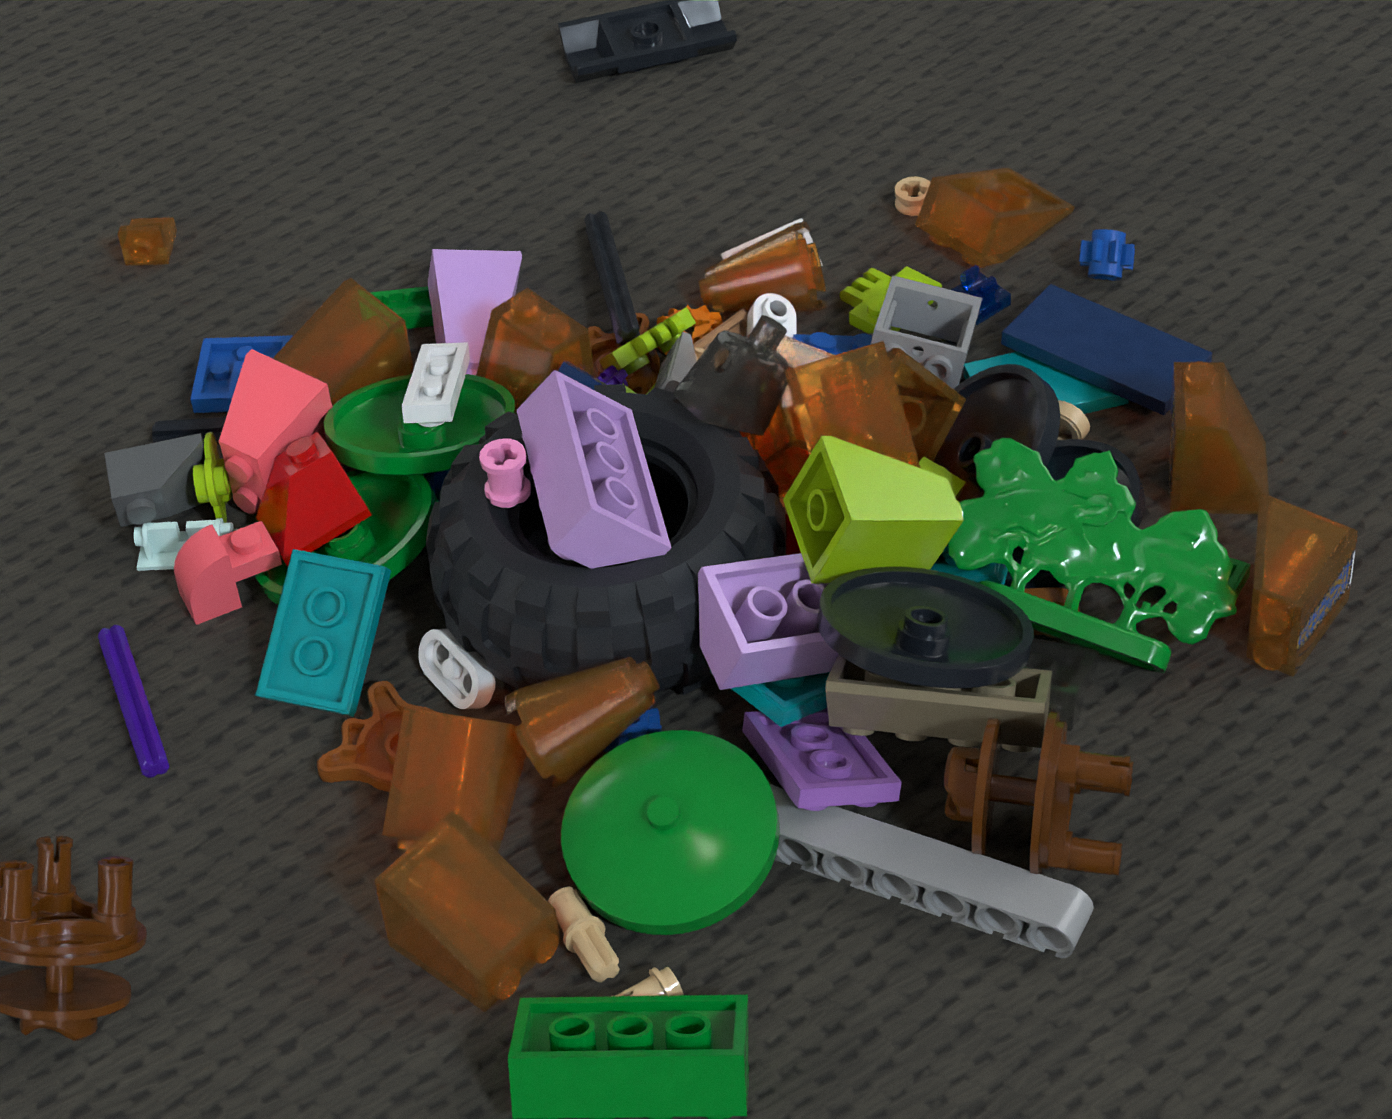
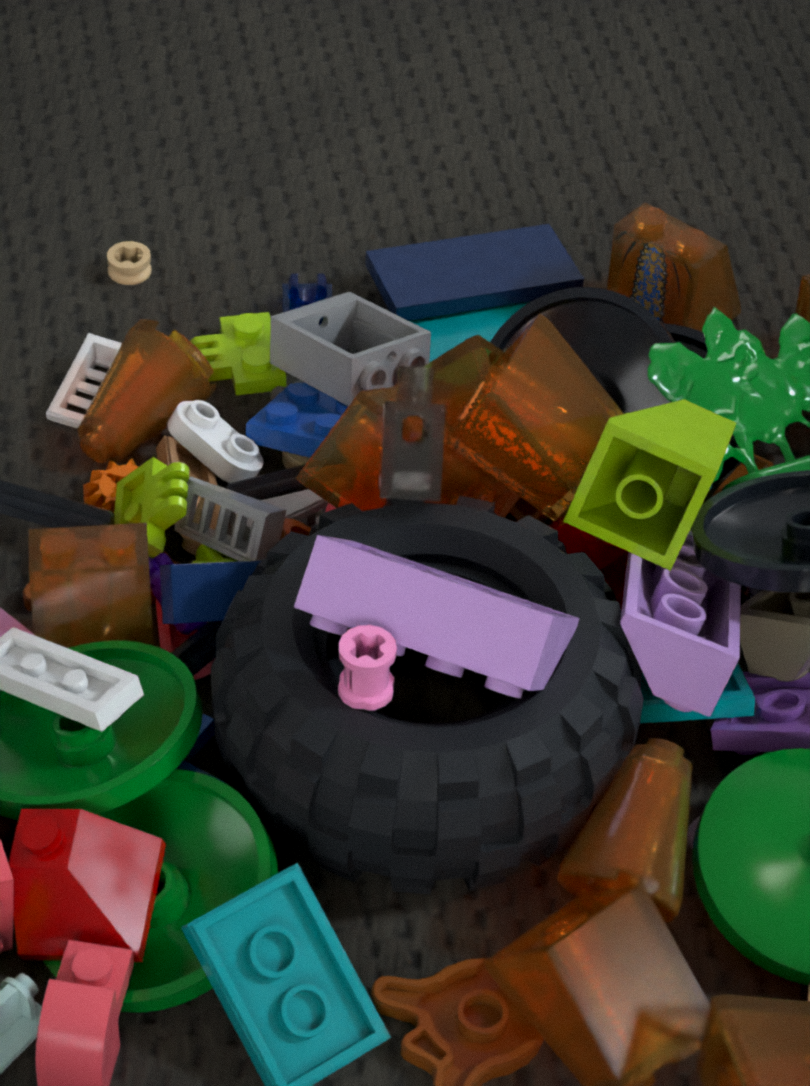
camera: 60 degrees left, 0 degrees up
(456, 673) = (423, 916): white plate -> none
(988, 214) = (223, 238): clear orange slope -> none
(1107, 254) = (360, 206): blue gear -> none

